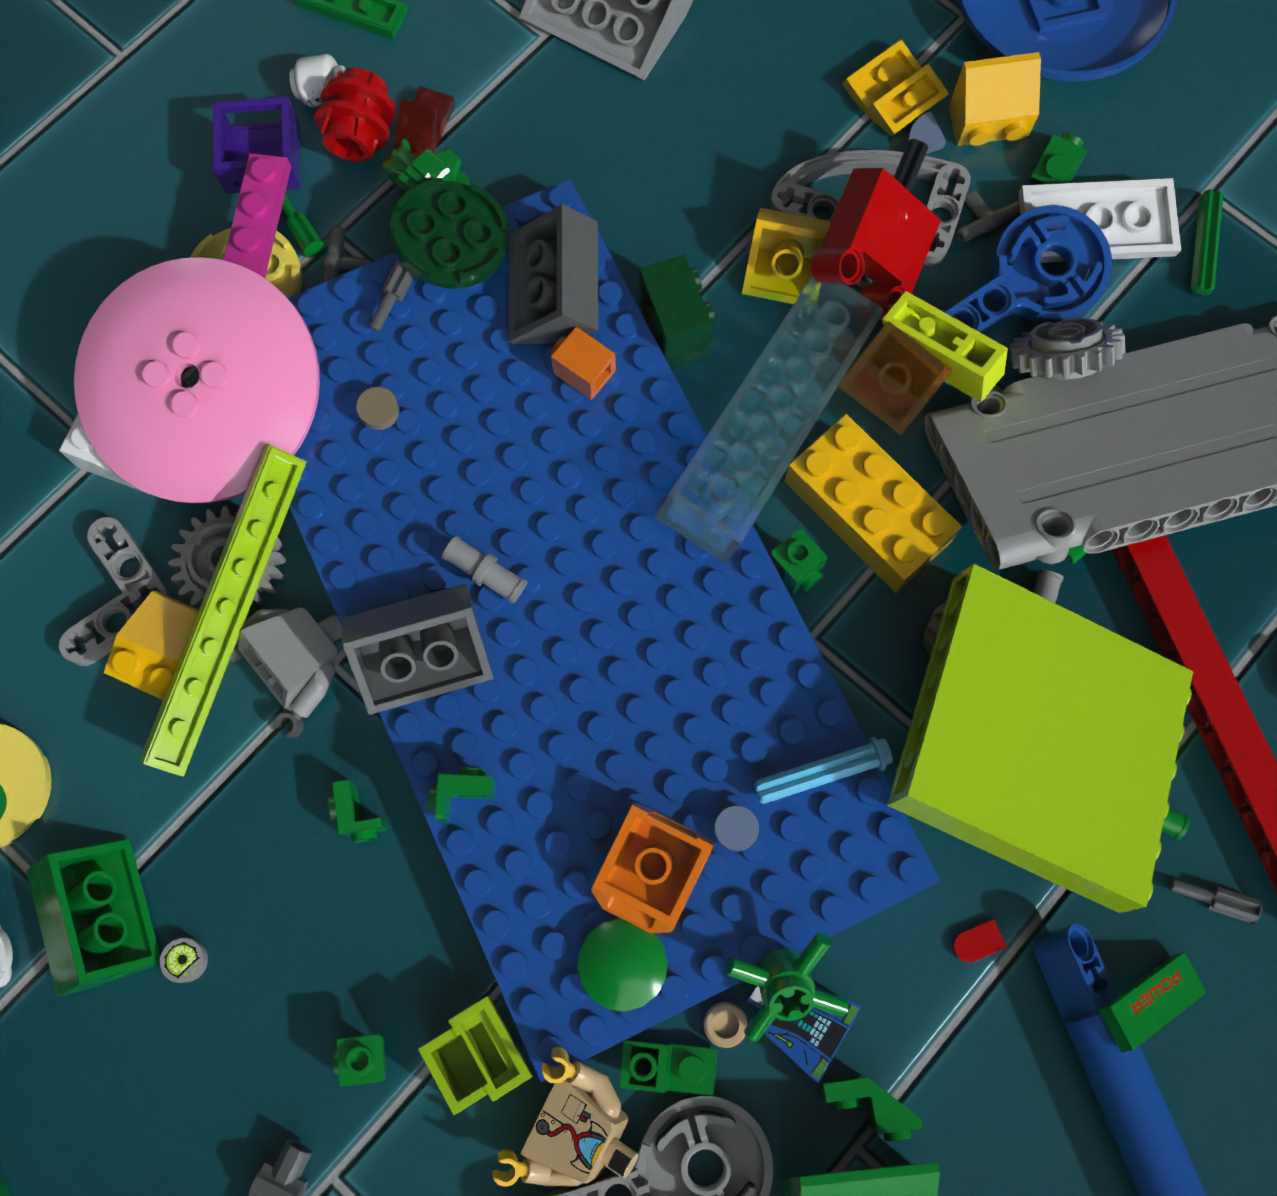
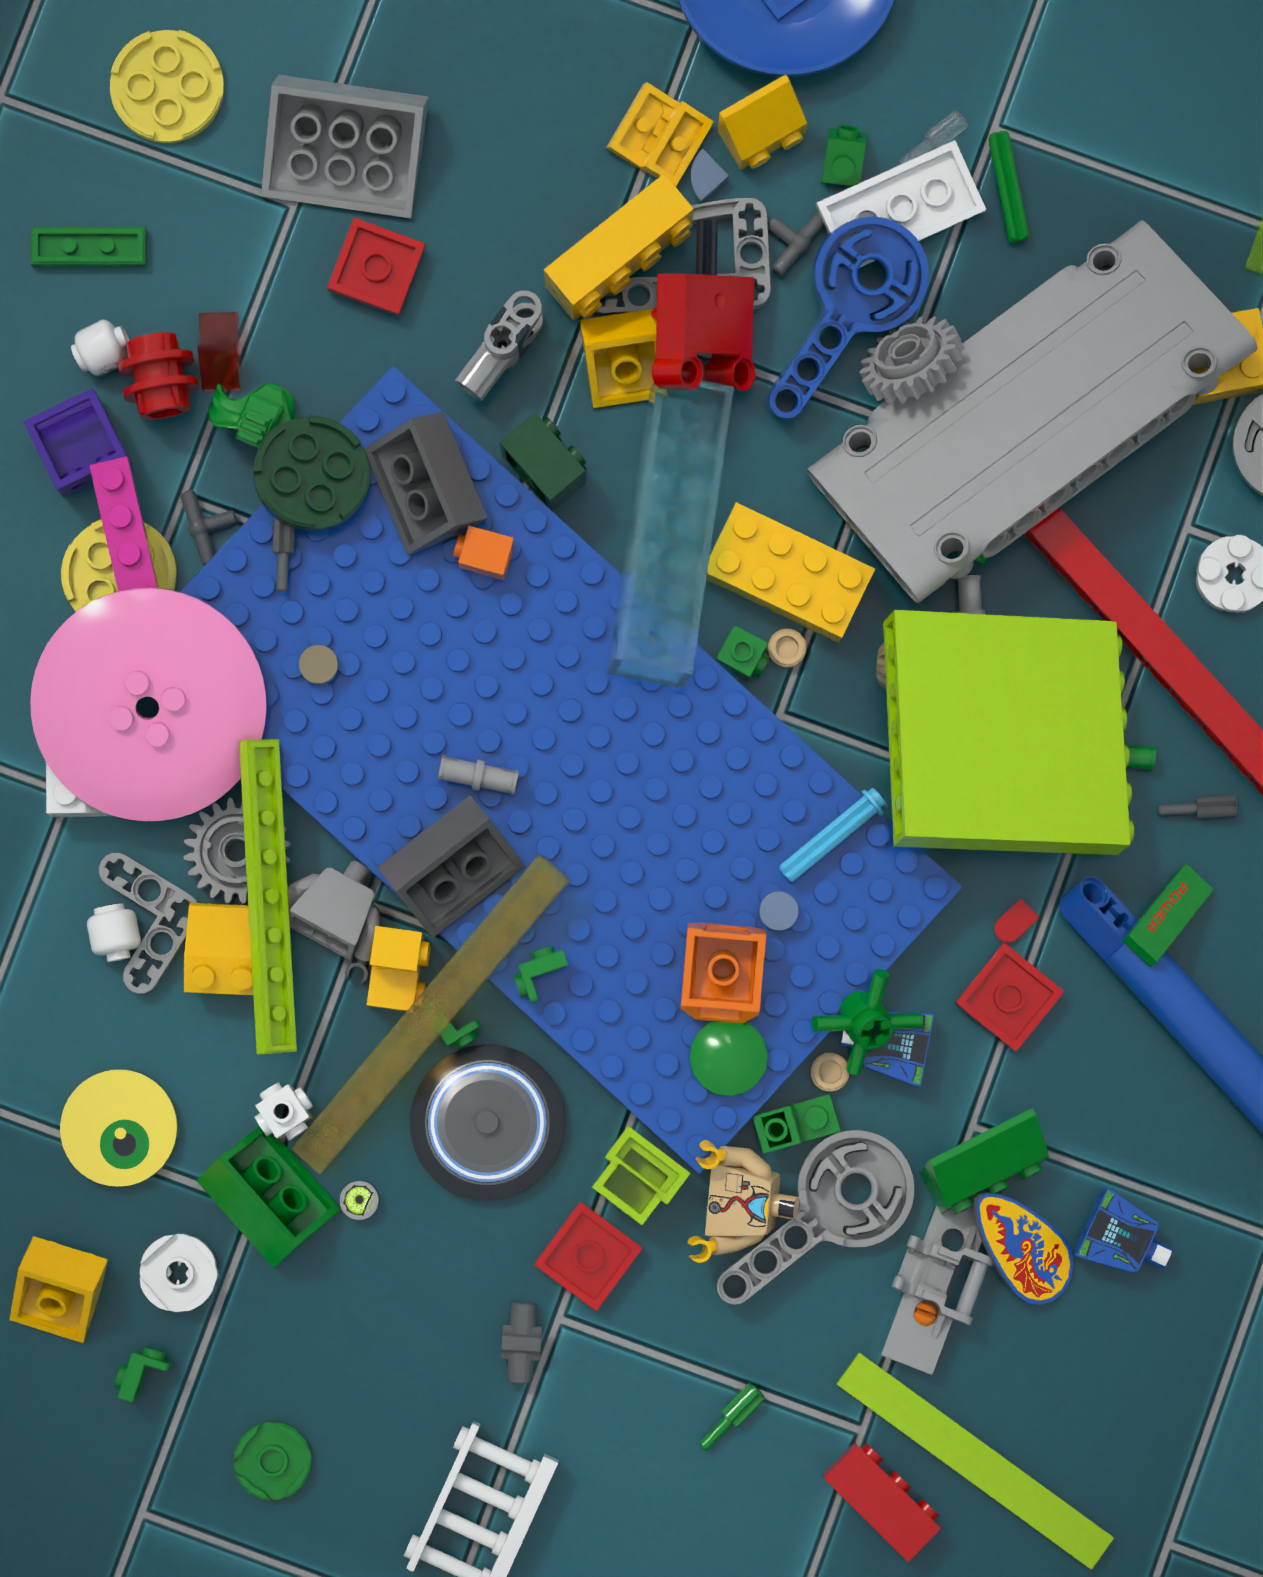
camera: 25 degrees left, 10 degrees up
(72, 591) = (113, 932): none -> white head
(160, 838) = (298, 1111): none -> white brick
(302, 230) = (158, 509): green axle -> none
(326, 733) = (397, 968): none -> yellow brick
(334, 791) = (431, 1013): none -> clear yellow plate
(349, 933) = (487, 1122): none -> dish
(359, 1060) = (545, 1216): green bracket -> none
(389, 1123) = (588, 1256): none -> red plate
(594, 104) = (376, 267): none -> red plate
(682, 200) = (489, 359): none -> light grey connector
(822, 147) = (619, 248): none -> yellow brick
(842, 577) = (786, 648): none -> tan tile
(884, 1112) = (983, 1087): green slope -> none
(894, 378) = (766, 453): clear orange slope -> none
(947, 1022) = (1009, 997): none -> red plate
(972, 356) = (801, 404): neon yellow slope -> none
(1172, 169) = (938, 135): none -> clear axle

